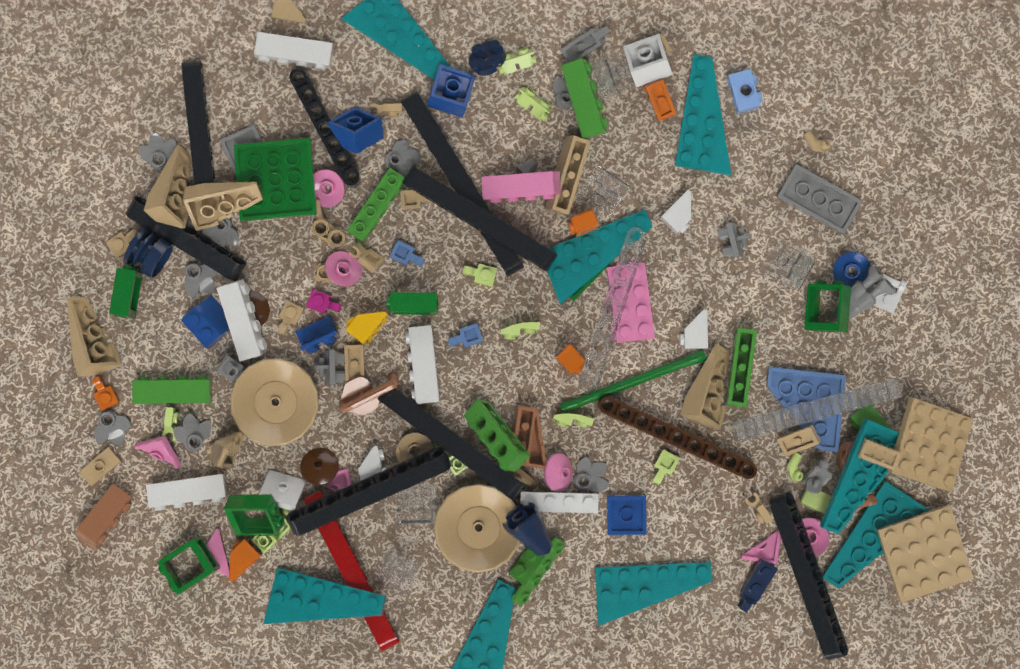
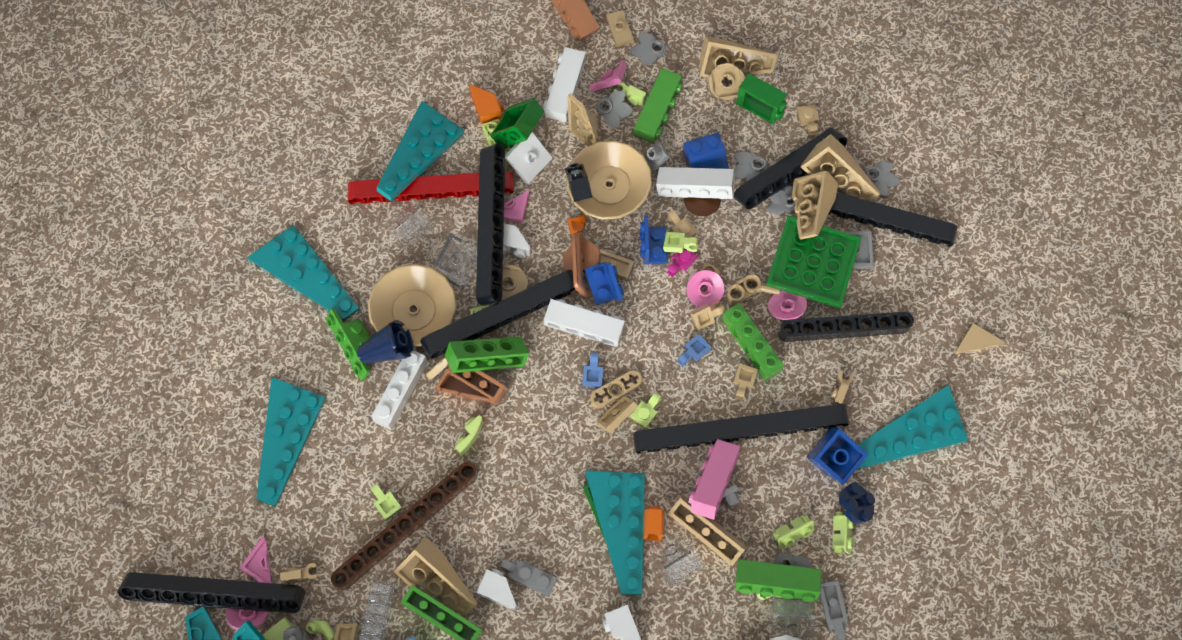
camera: 110 degrees right, 15 degrees down
(105, 396) = (678, 54): orange plate -> none
(116, 346) = (717, 76): none -> tan plate
(148, 253) = (790, 130): dark blue wheel -> none
(204, 557) = (494, 74): green window -> none
(217, 549) = (501, 87): bright pink tile -> none
(292, 427) = (578, 182): none -> black slope
(293, 50) = (932, 329): white brick -> none
(308, 313) = (677, 242): none -> yellowish green plate
(322, 474) = (531, 205): reddish brown dish -> none
(328, 370) = (626, 247): light grey hips -> none
(328, 416) = (576, 224): none -> orange tile
(357, 129) = (832, 351): blue slope -> none
(366, 326) = (640, 282): yellow slope -> none
(378, 362) = (603, 283): none -> blue bracket
(405, 157) = (788, 388): light grey plate -> none
(412, 303) = (644, 334): green window -> none
(464, 297) = (631, 387): none -> tan beam
(479, 218) = (698, 426): black beam -> none
(496, 298) = (617, 414): none -> tan plate
(513, 331) = (578, 418): yellowish green slope -> none
(558, 472) = (433, 397): bright pink dish -> none
(571, 360) = (526, 455): orange slope -> none
(594, 475) = (411, 433): light grey plate -> none
(619, 302) = (558, 524): clear beam -> none
(626, 515) = (357, 446): blue plate -> none
(637, 316) = (556, 540): bright pink plate -> none
(671, 311) = (529, 576): none -> light grey hinge
(689, 360) = (474, 571): green piece -> none
(756, 584) = (231, 539): dark blue hinge -> none

